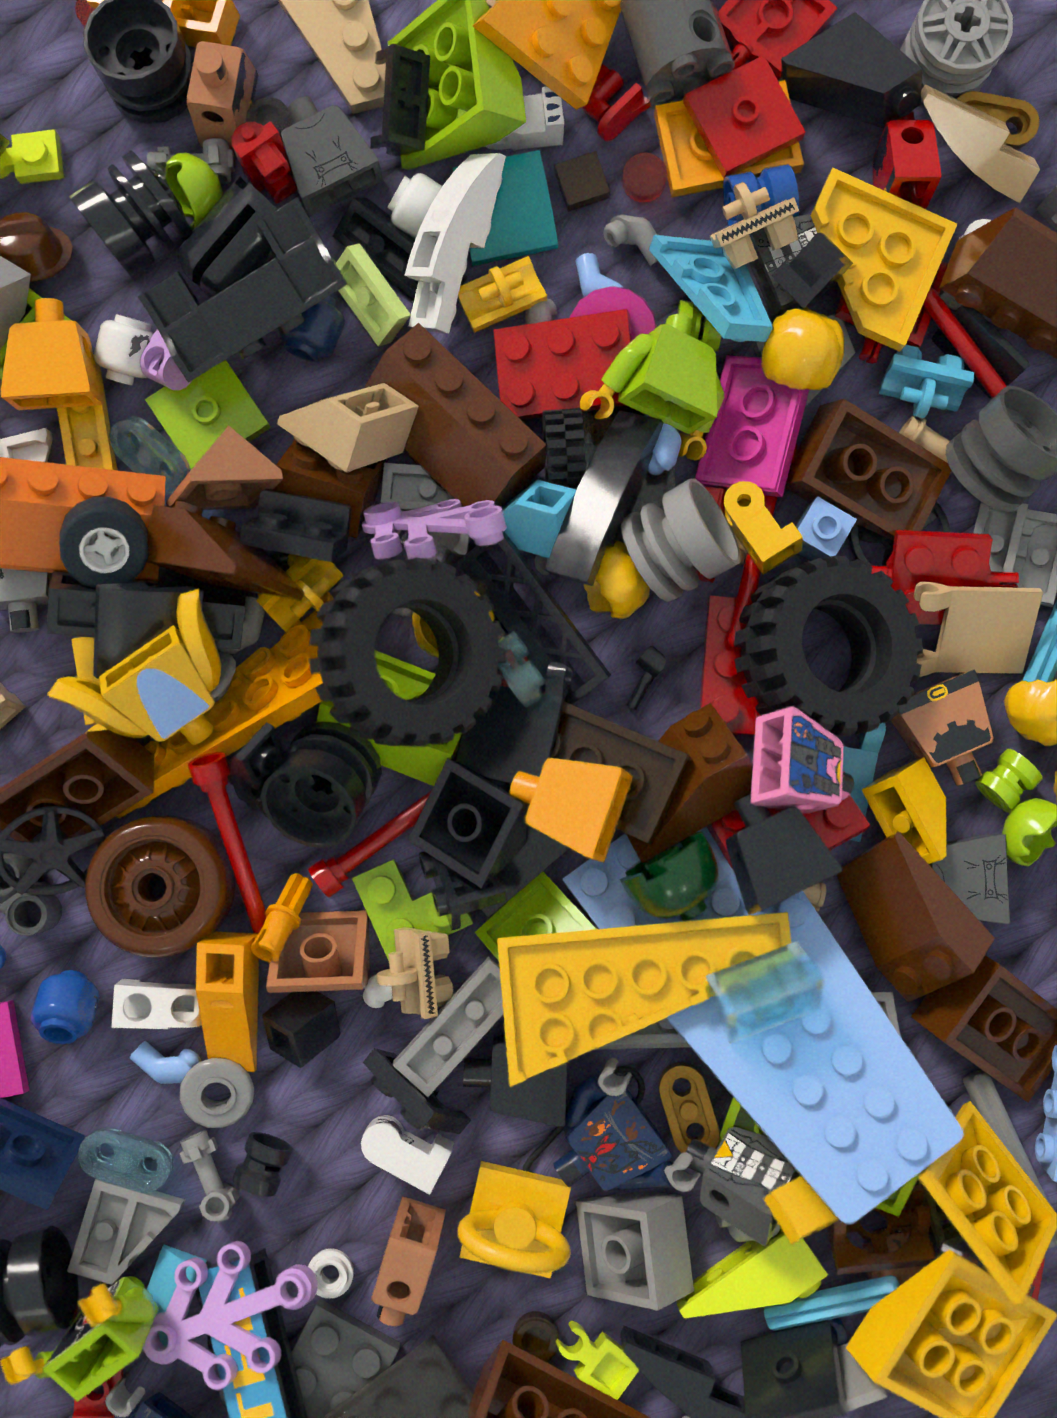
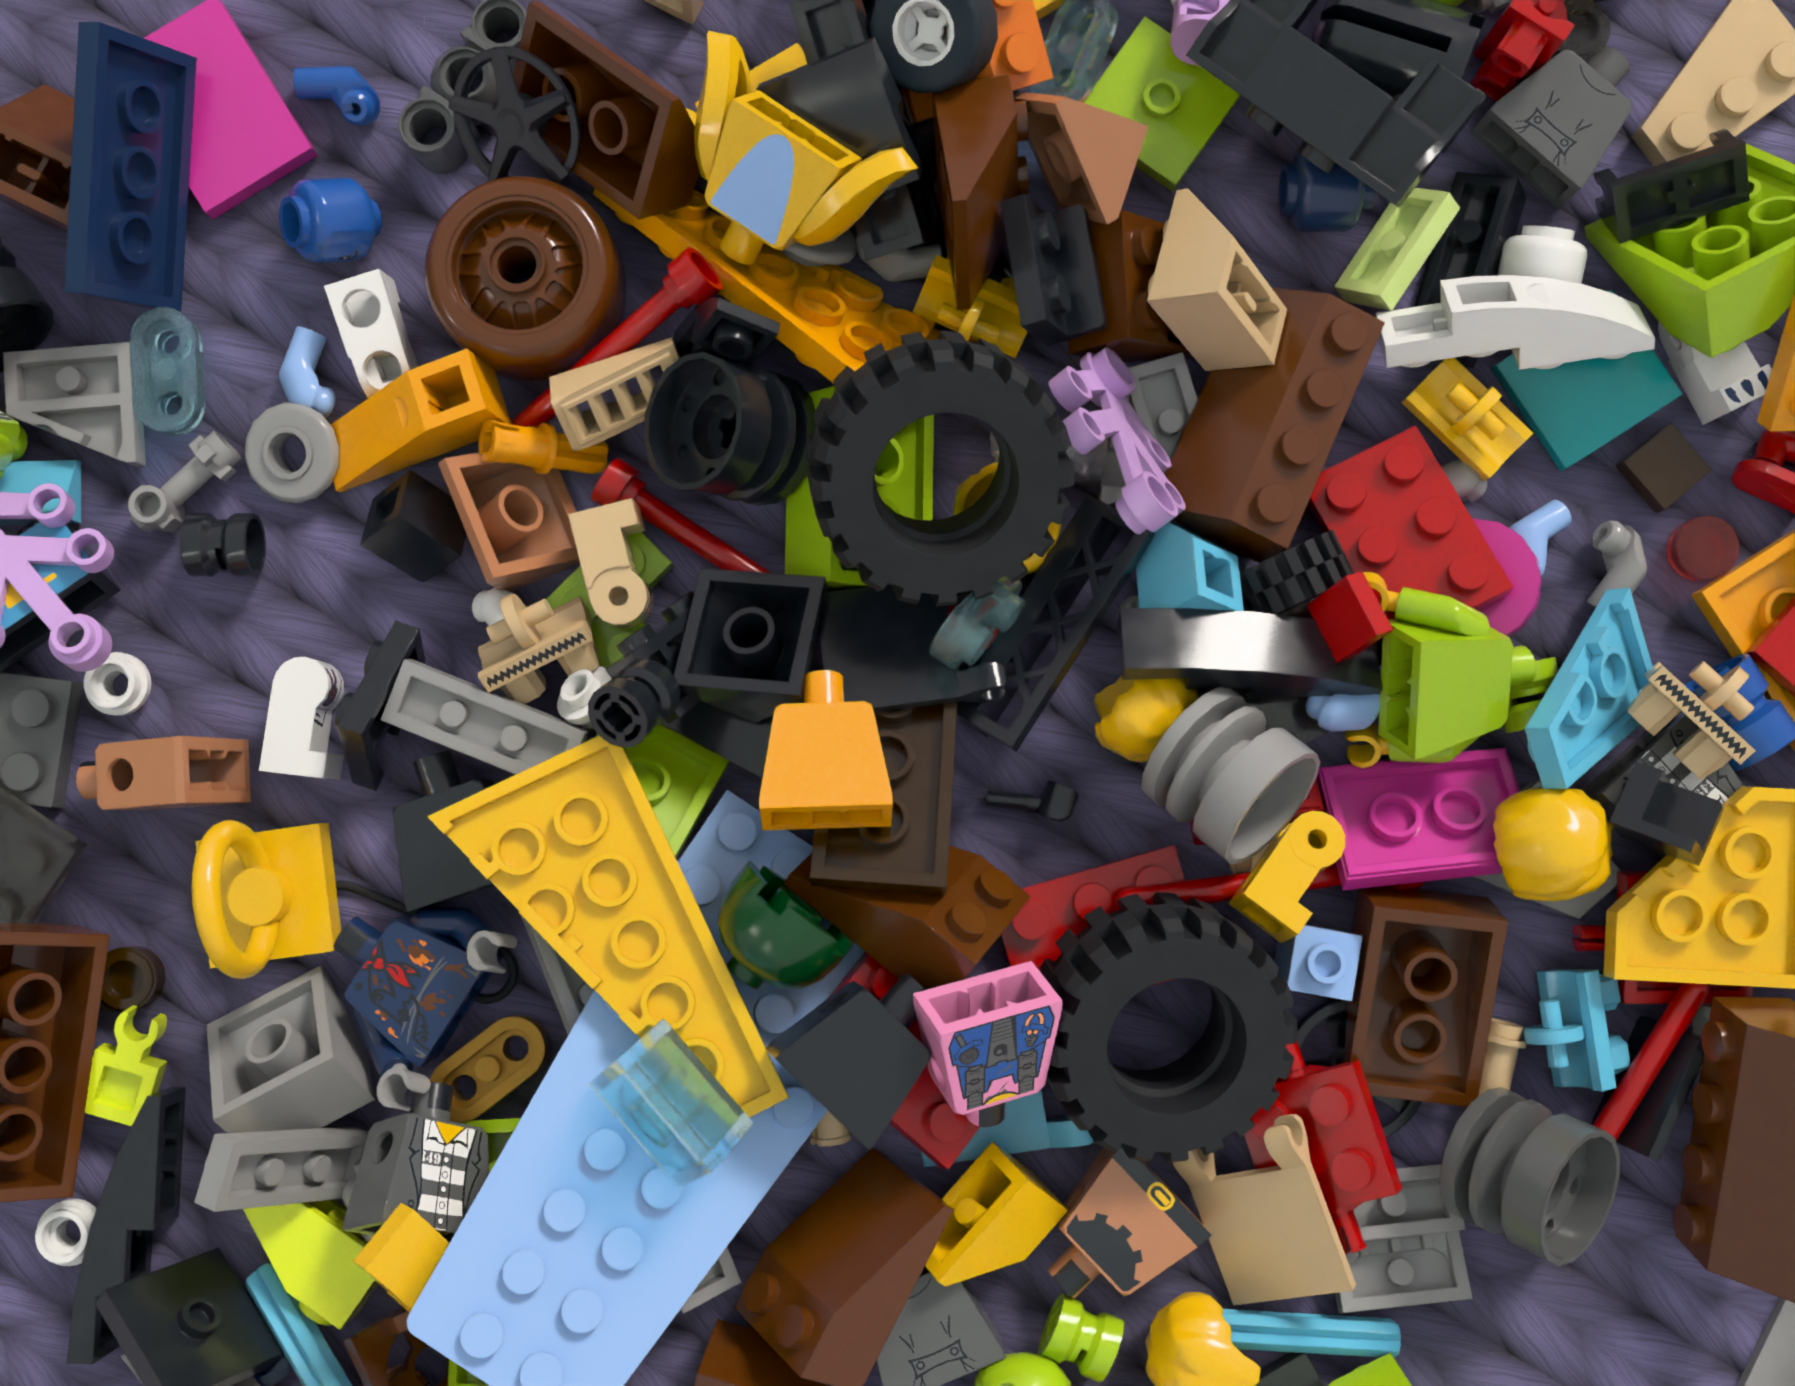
camera: 70 degrees right, 0 degrees up
(251, 865) = (591, 380): none -> tan slope
(379, 901) = (609, 562): none -> tan leg
(466, 949) = (576, 693): none -> white plate
(485, 917) = (634, 703): none -> black wheel
(607, 422) = (1349, 617): none -> red tile
(706, 1275) = (278, 1167): none -> light grey plate

